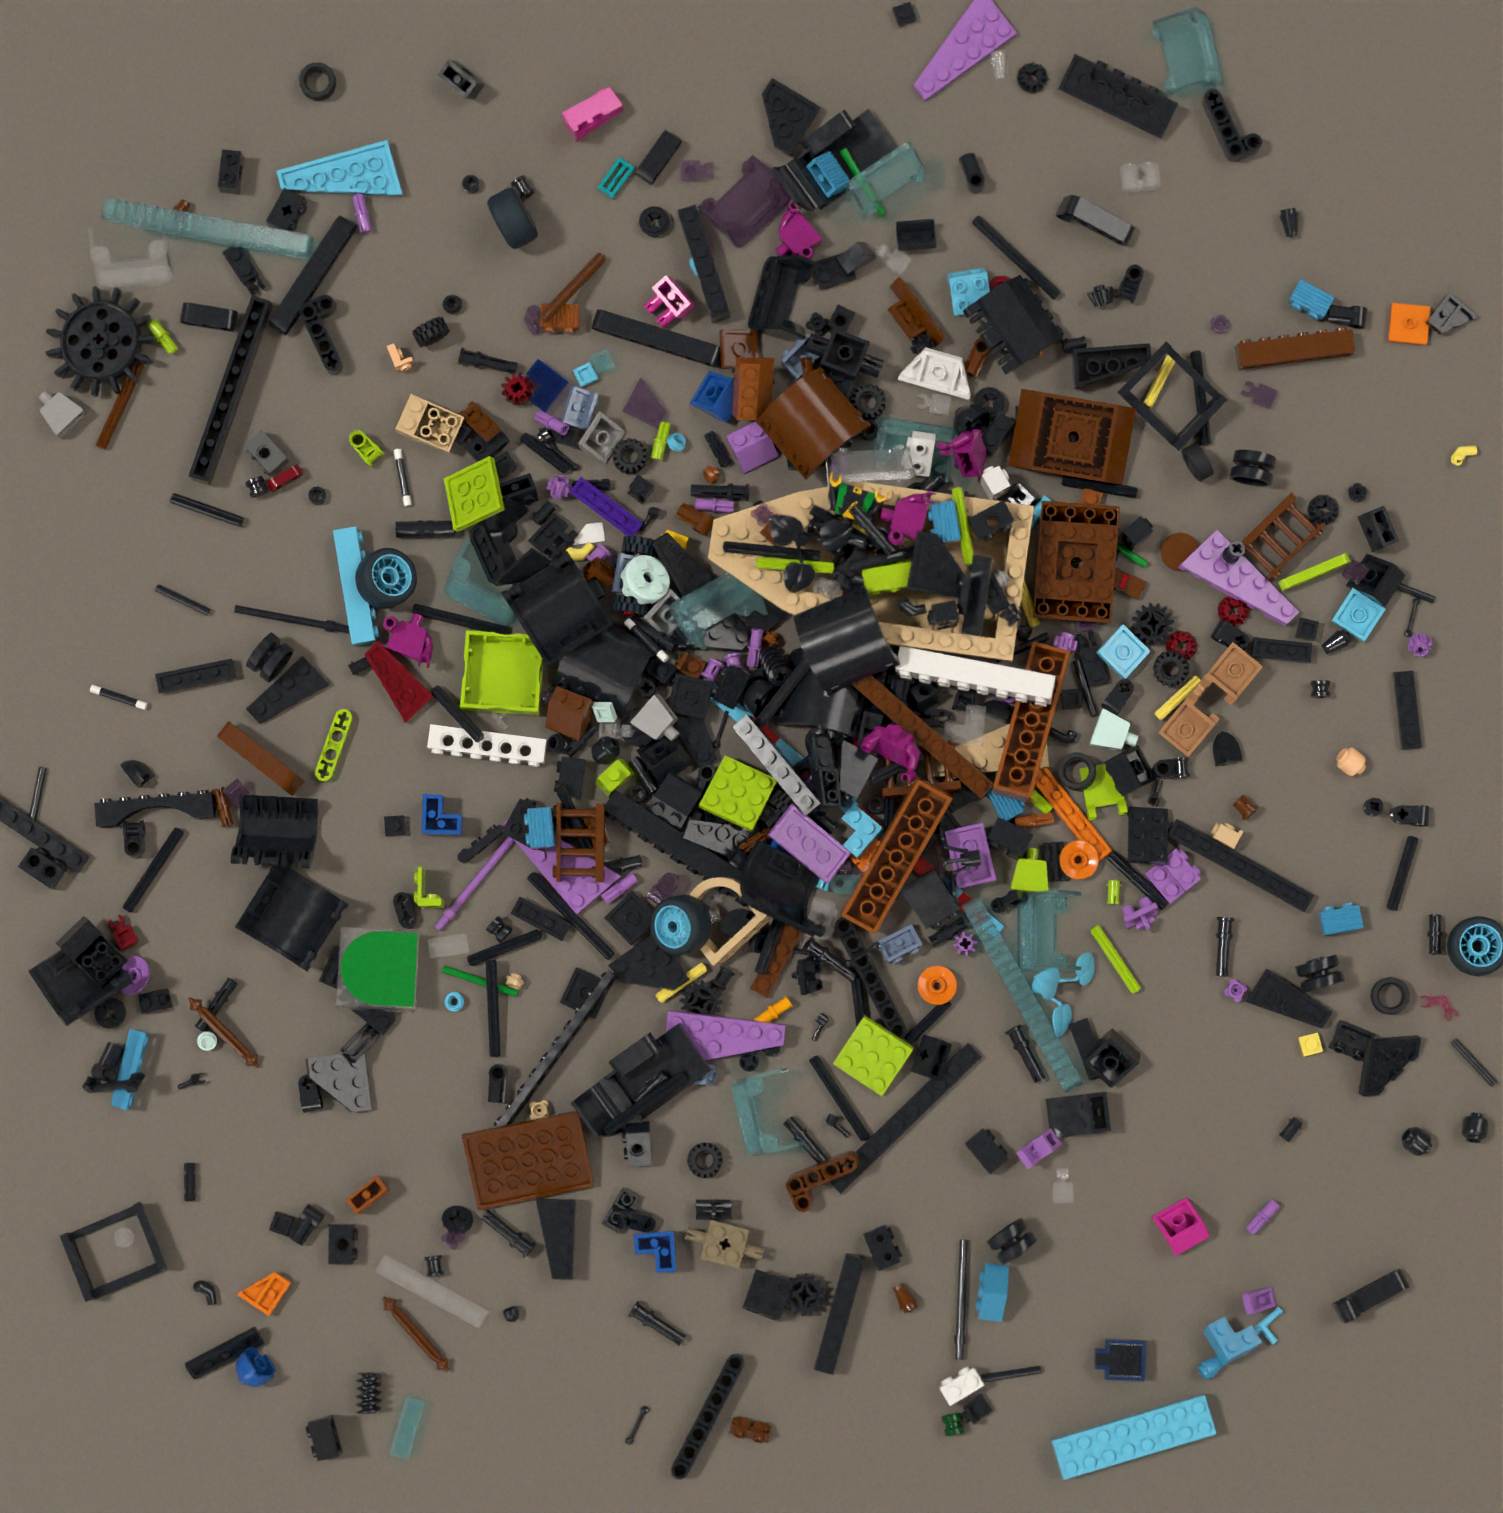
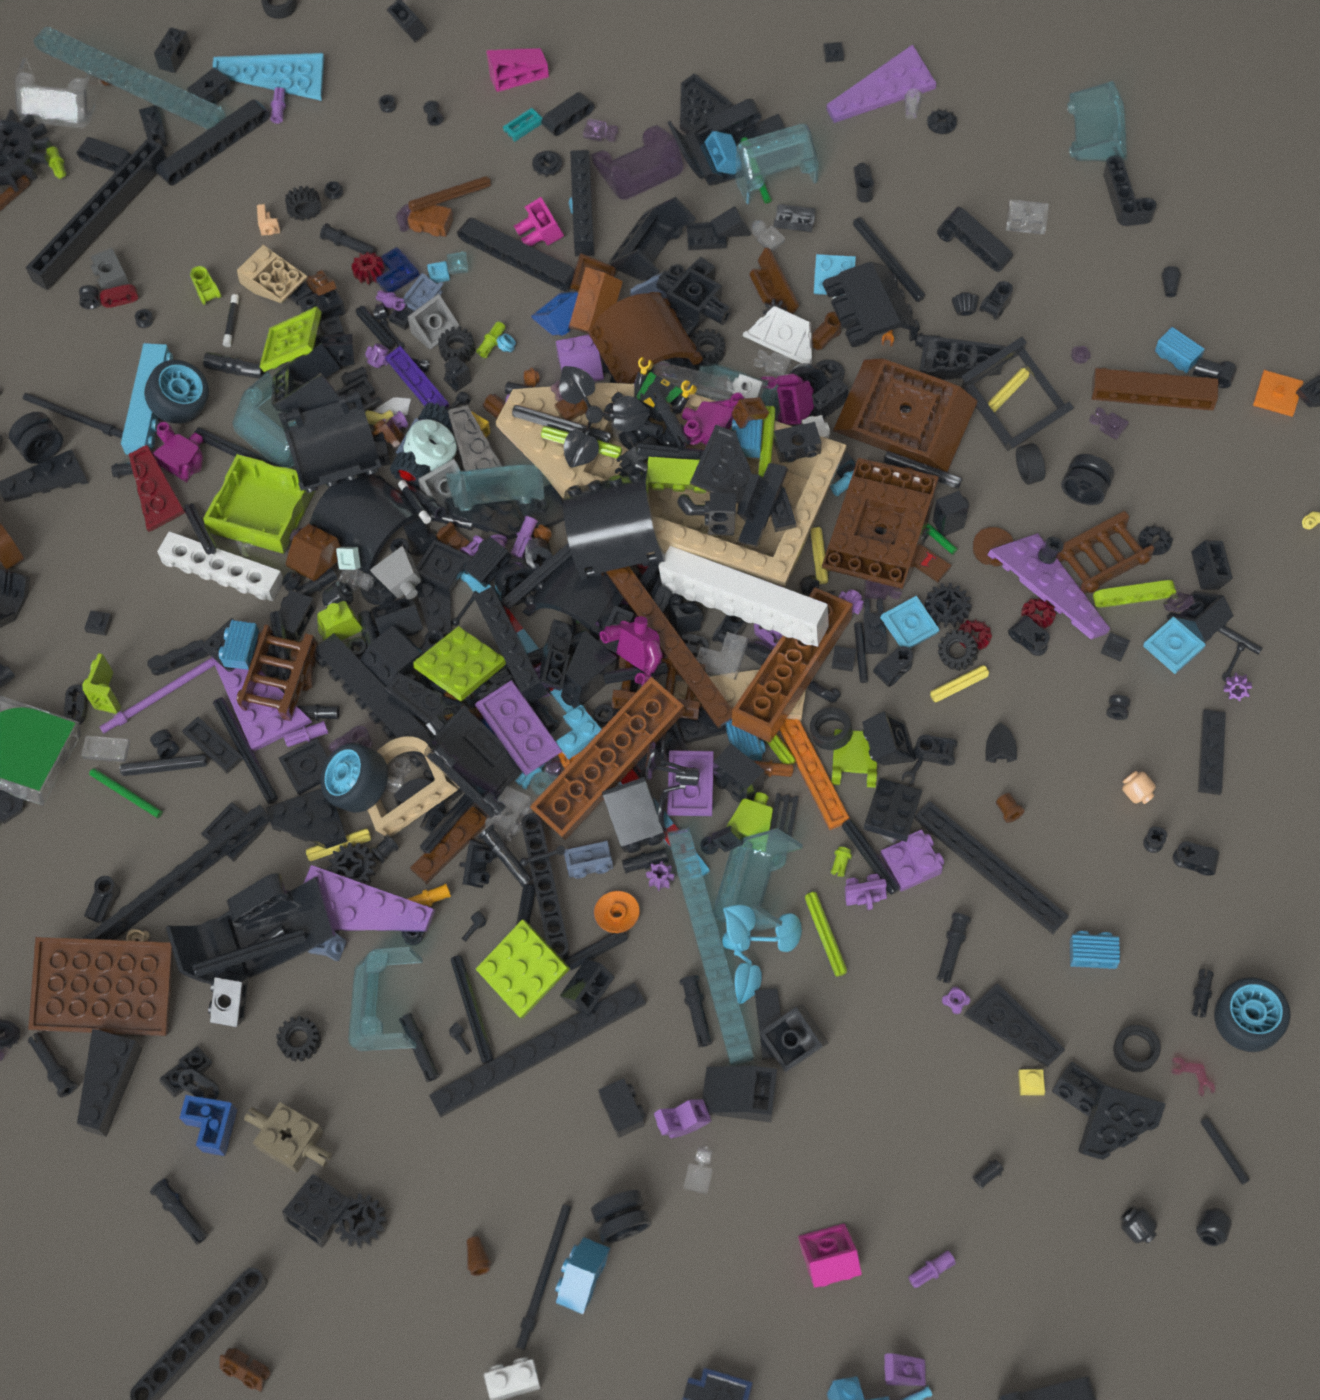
camera: 15 degrees right, 20 degrees down
(207, 510) = (35, 308): black axle -> none
(323, 337) = (200, 172): black beam -> none
(337, 746) = (71, 537): lime beam -> none
(435, 821) = (141, 623): blue brick -> none
(449, 997) = (88, 801): medium azure plate -> none
(493, 1008) = (127, 821): black axle -> none
(511, 1313) = (20, 1157): black hinge -> none
(512, 218) = (412, 125): black wheel -> none
(514, 981) = (161, 800): tan plate -> none
(644, 1409) = (129, 1312): black hinge -> none
(645, 406) = (486, 308): clear purple wing -> none
(713, 1209) = (289, 1094): black hips -> none
(717, 449) = (544, 358): black axle -> none
(748, 1061) = (381, 938): black wheel -> none
(796, 234) = (681, 187): magenta torso -> none
(823, 1174) = (424, 1086): reddish brown beam -> none
(826, 588) = (605, 469): clear wheel -> none
(839, 1314) = (393, 1254): black brick -> none
(882, 1248) = (468, 1189): black brick -> none
(943, 507) = (749, 410): none -> reddish brown bracket
(1001, 577) = (794, 498): light grey plate -> none
(1010, 1374) = (578, 1384): black bar -> none
(1011, 615) = (795, 533): black wheel -> none
(1088, 862) = (813, 808): orange dish -> none
(1112, 732) = (878, 696): light aqua torso -> none
(1118, 95) = (1022, 146): black plate -> none
(1188, 724) = (968, 710): medium nougat plate -> none
(1200, 397) = (1047, 408): black axle -> none
(1226, 835) = (982, 829): tan brick -> none
(1281, 650) = (1083, 661): black plate -> none
(1319, 973) = (1058, 999): black wheel -> none
(1336, 642) = (1145, 666): black cone -> none
(1357, 497) = (1191, 534): black plate -> none
(1402, 873) = (1175, 919): black axle -> none

